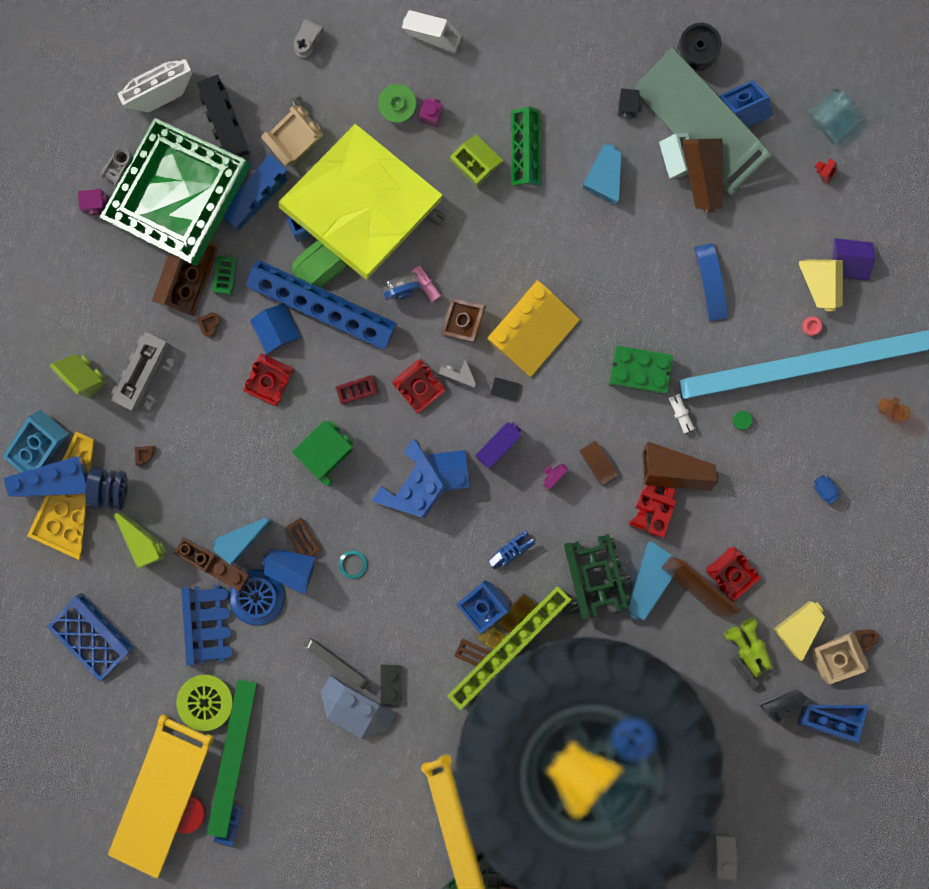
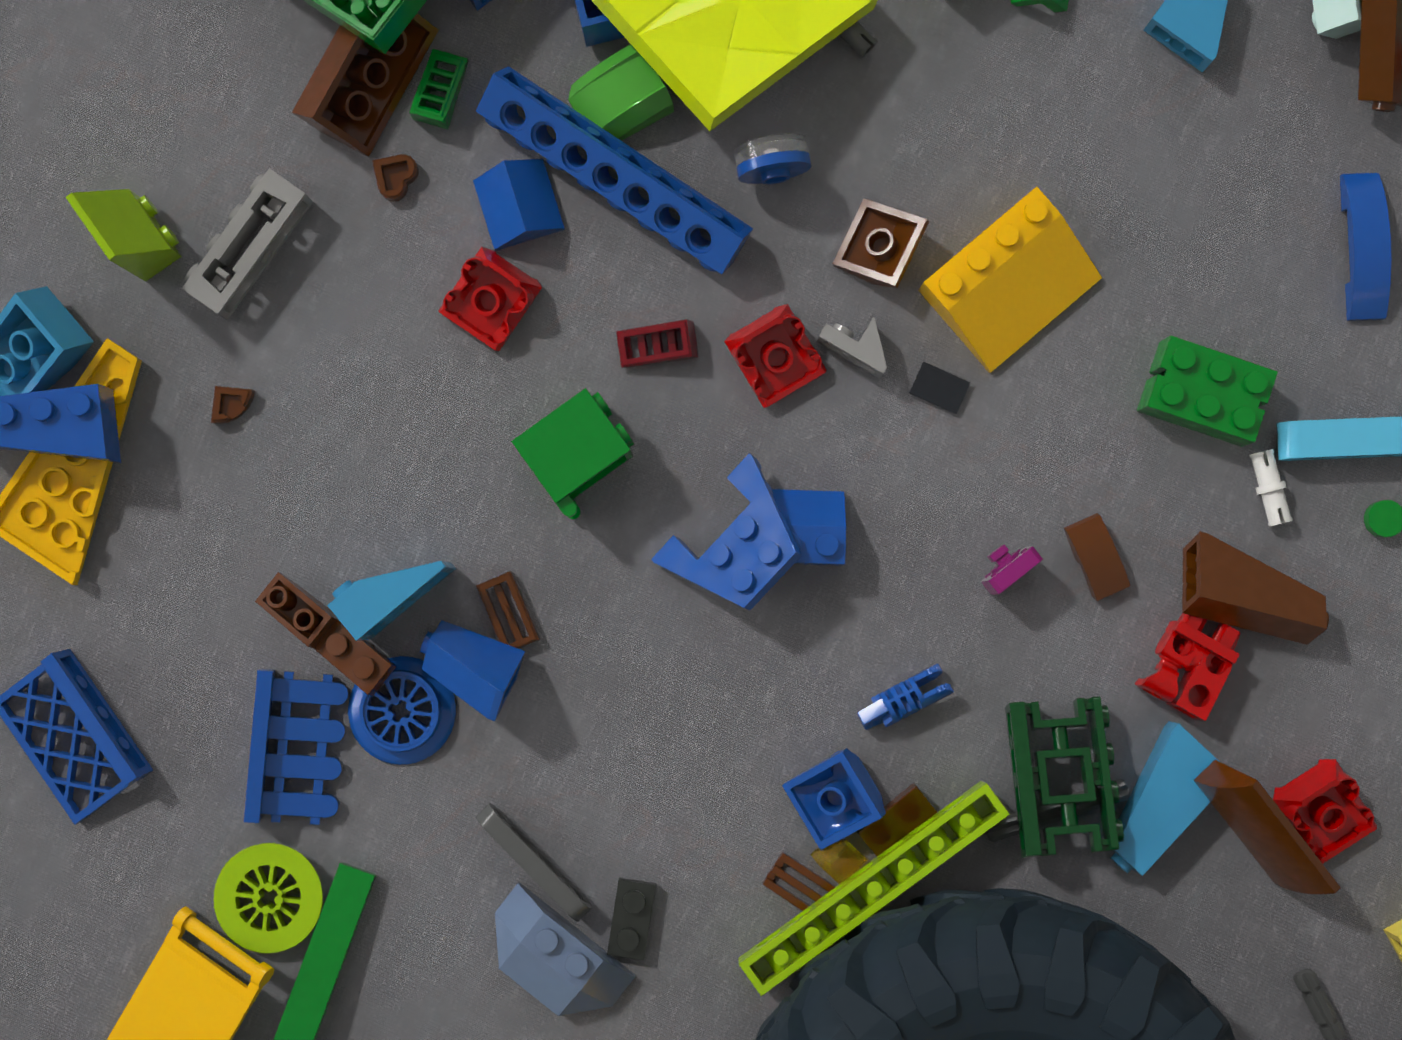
camera: 10 degrees right, 0 degrees up
(103, 489) = (144, 457): dark blue wheel -> none
(142, 545) = (194, 573): lime slope -> none
(364, 564) = (618, 671): teal piece -> none
(427, 284) = (822, 167): bright pink axle -> none
(498, 444) = (914, 491): dark purple brick -> none
(747, 653) = (1337, 973): lime piece -> none

